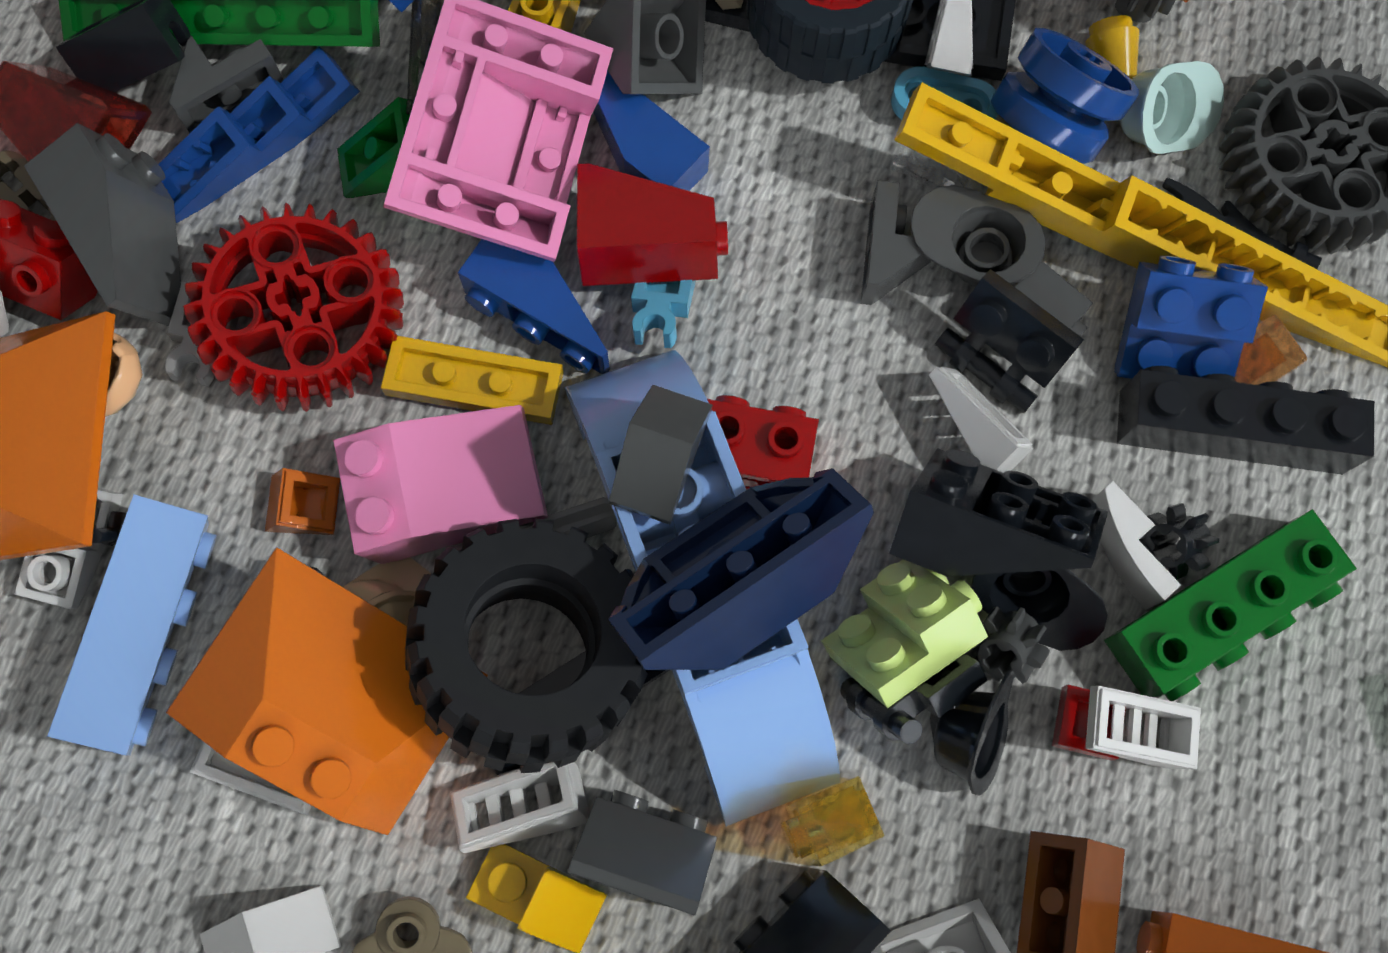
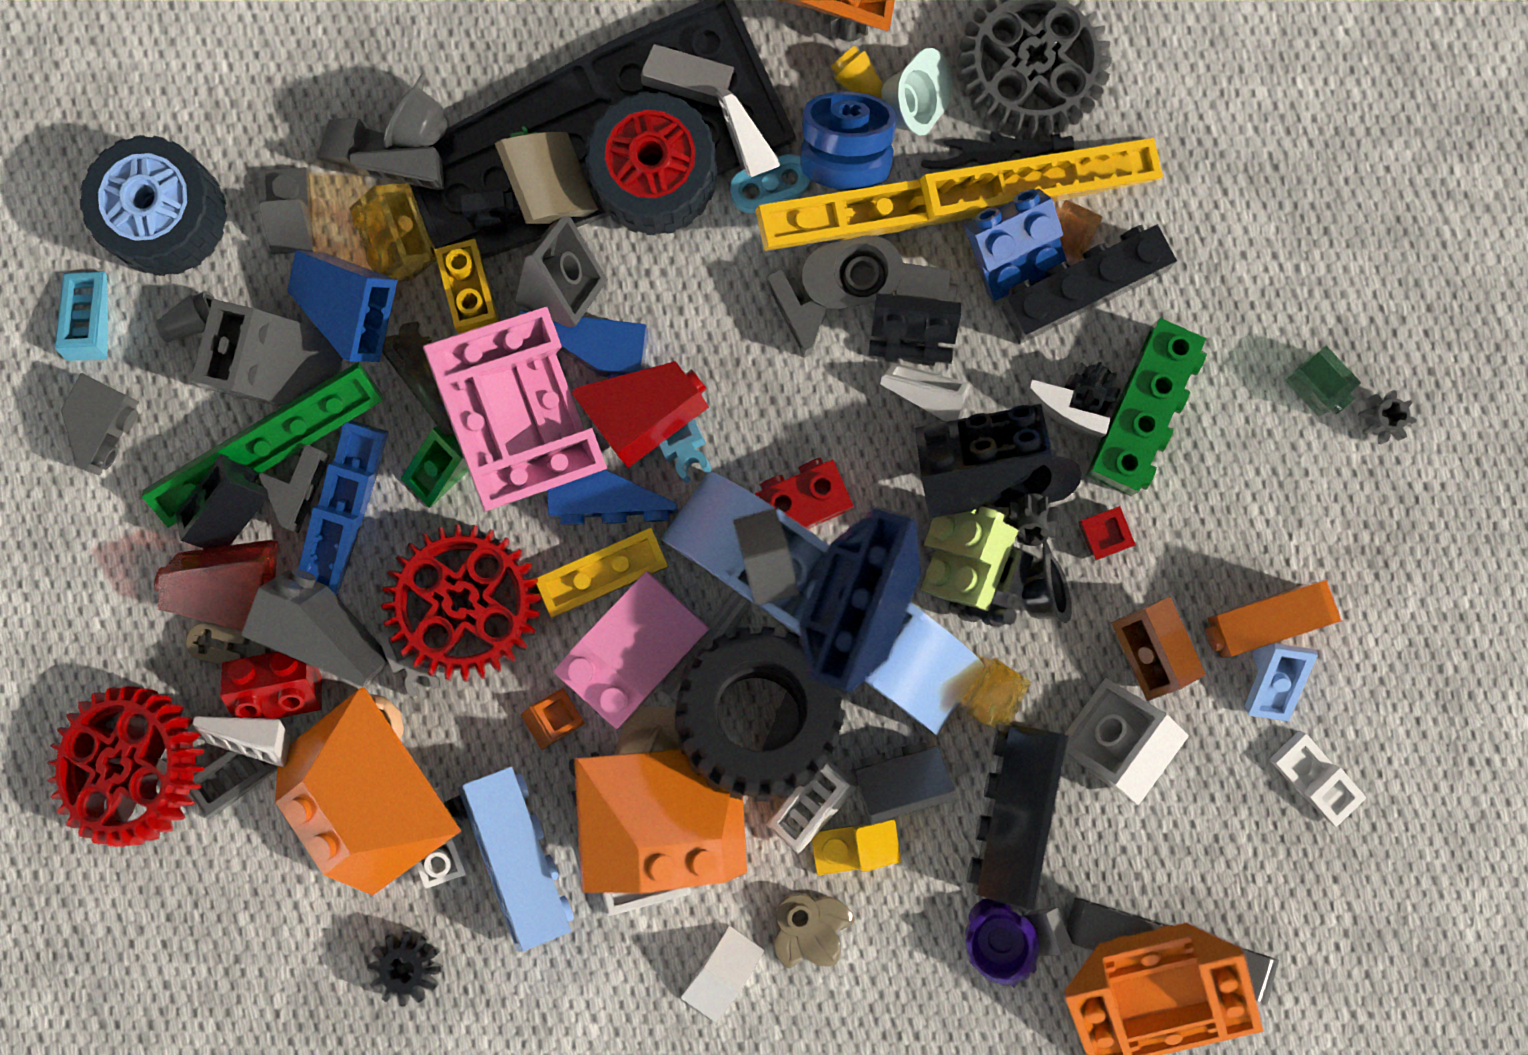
camera: 30 degrees left, 10 degrees up
(1177, 732) = (1161, 507): white slope -> none

